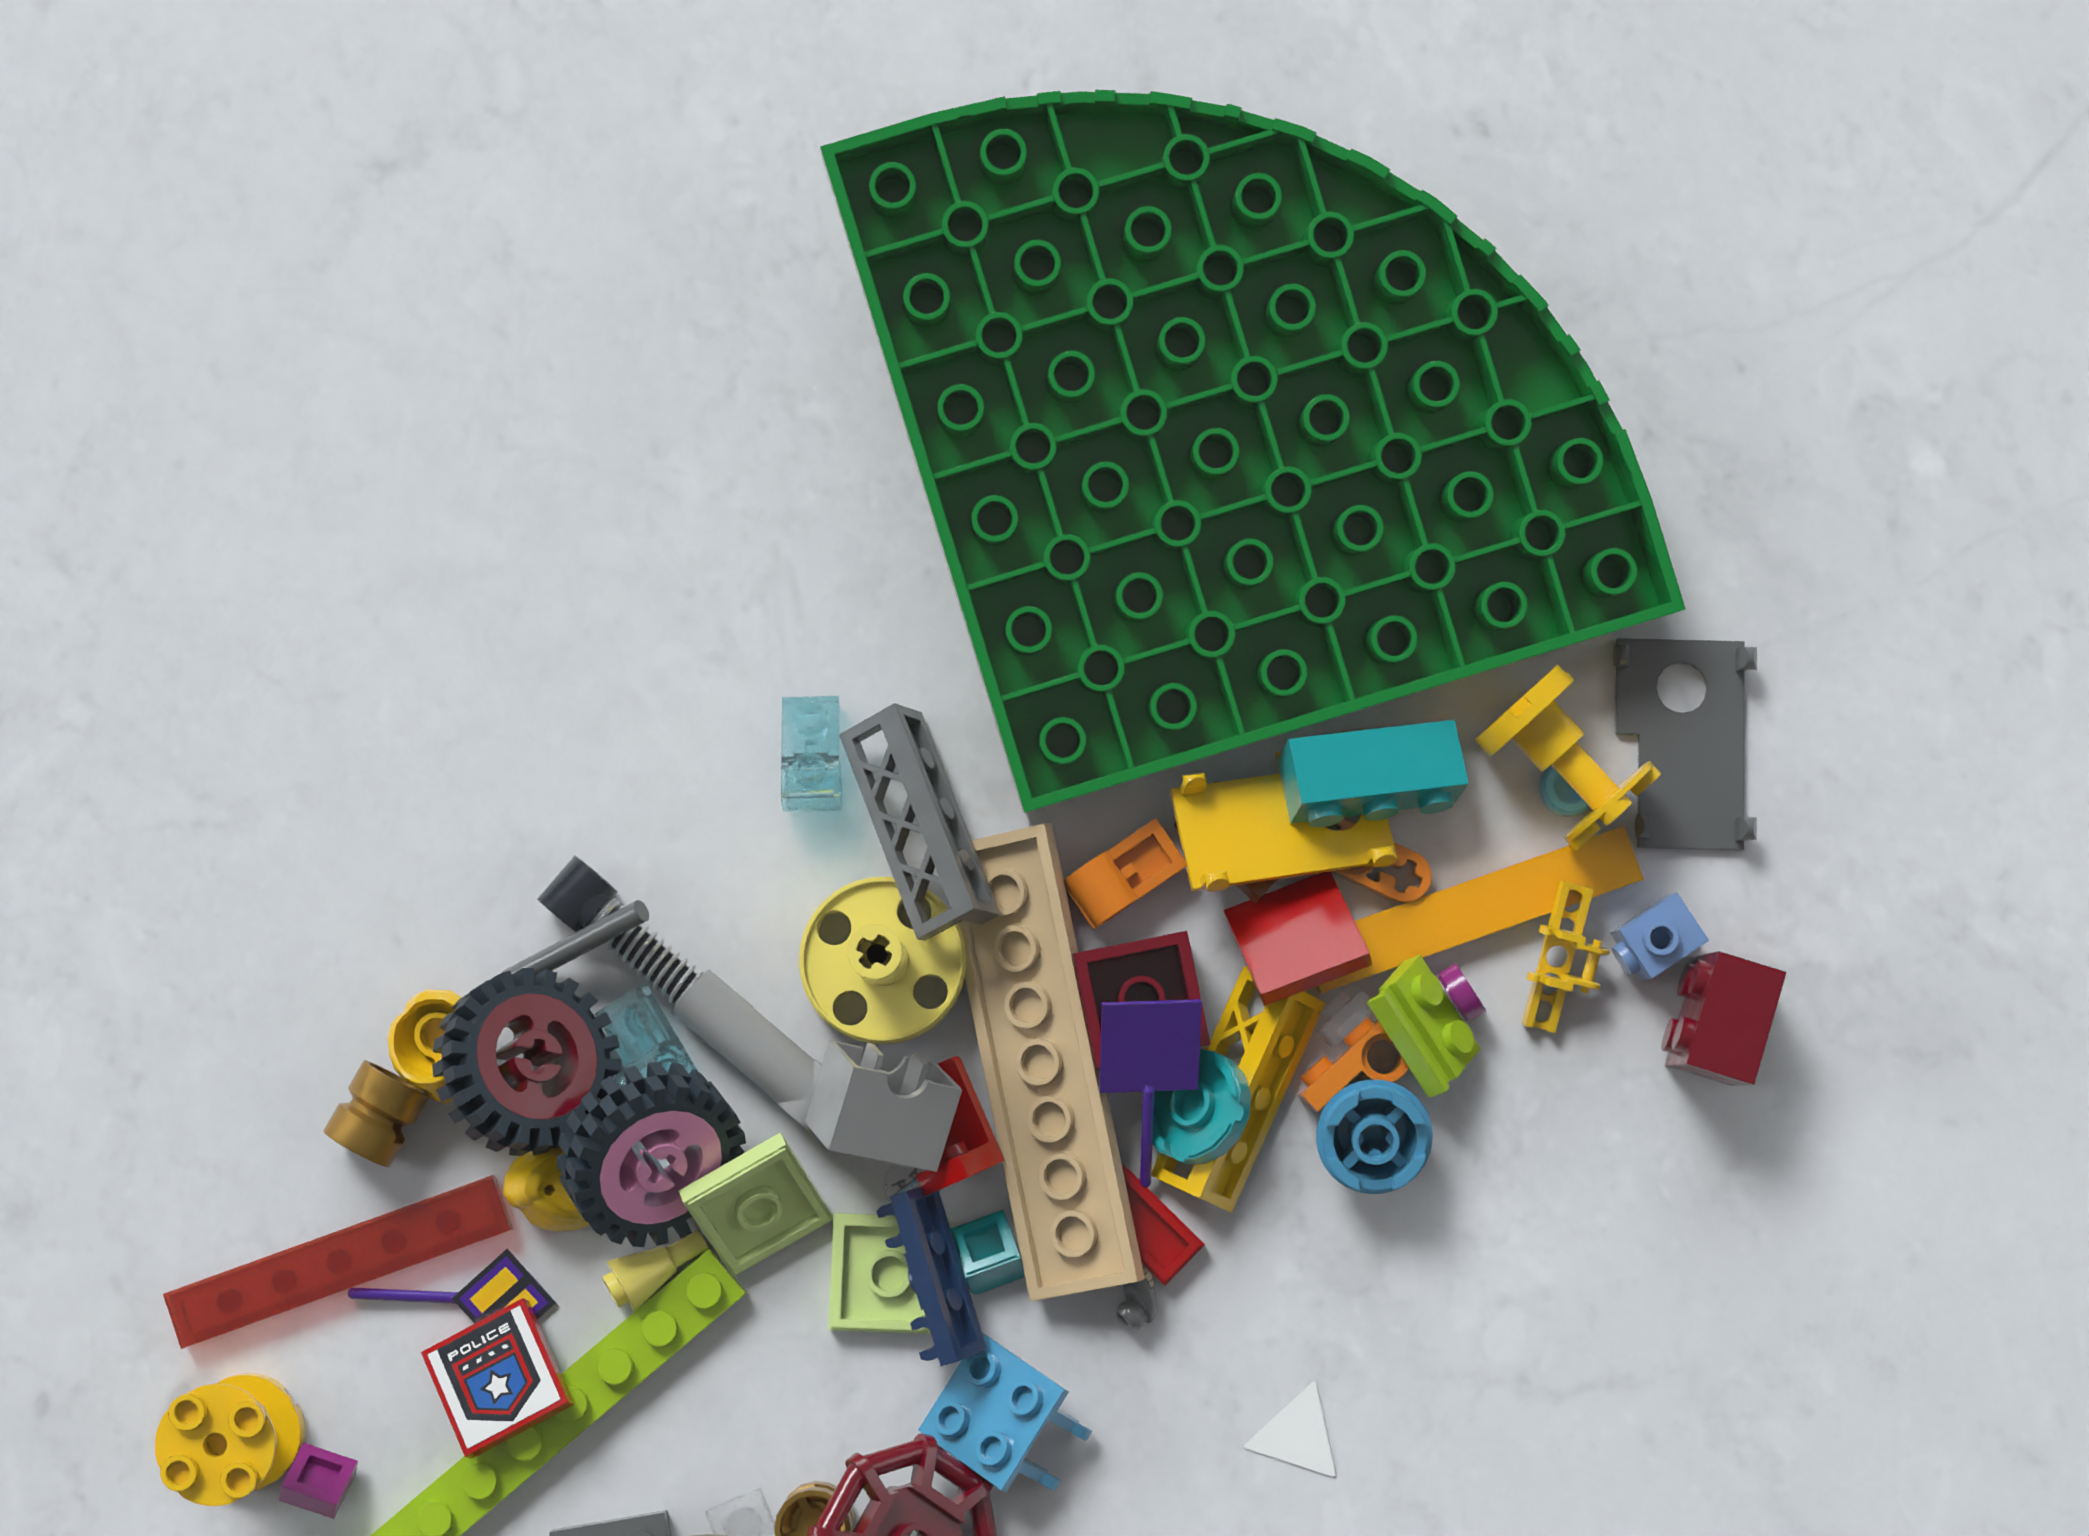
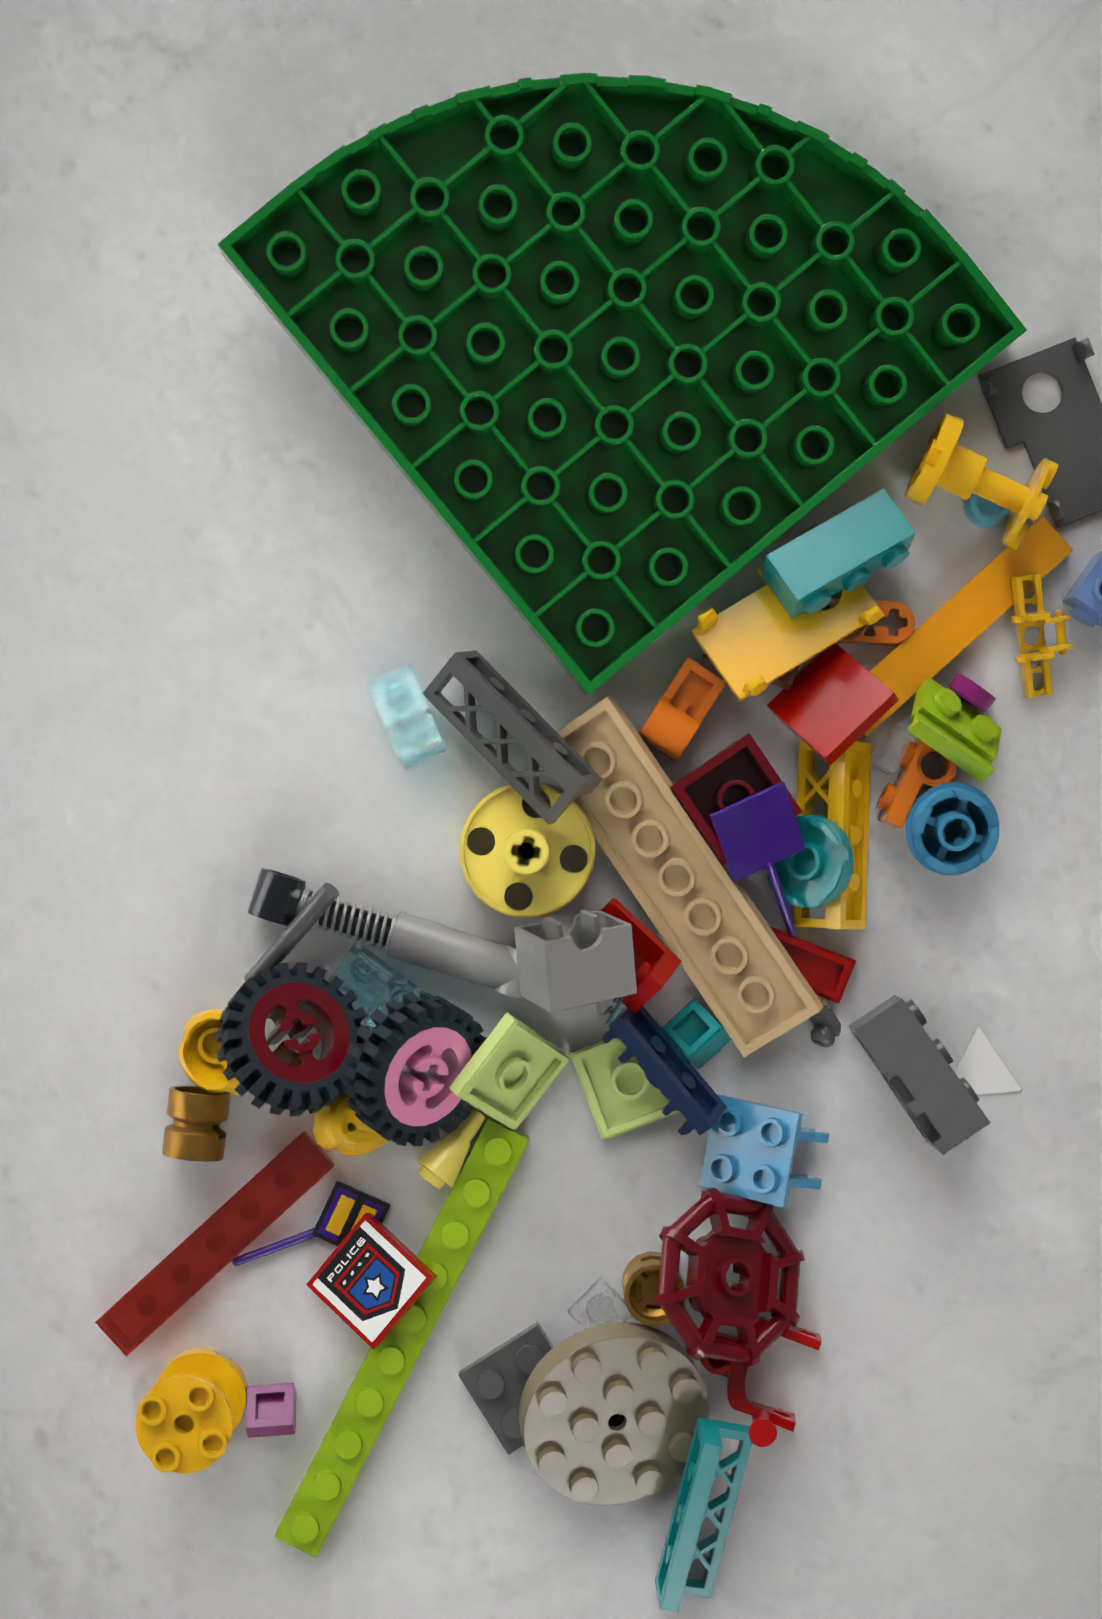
camera: 15 degrees left, 5 degrees up
(1223, 1402) = (920, 1073): none -> dark grey wedge

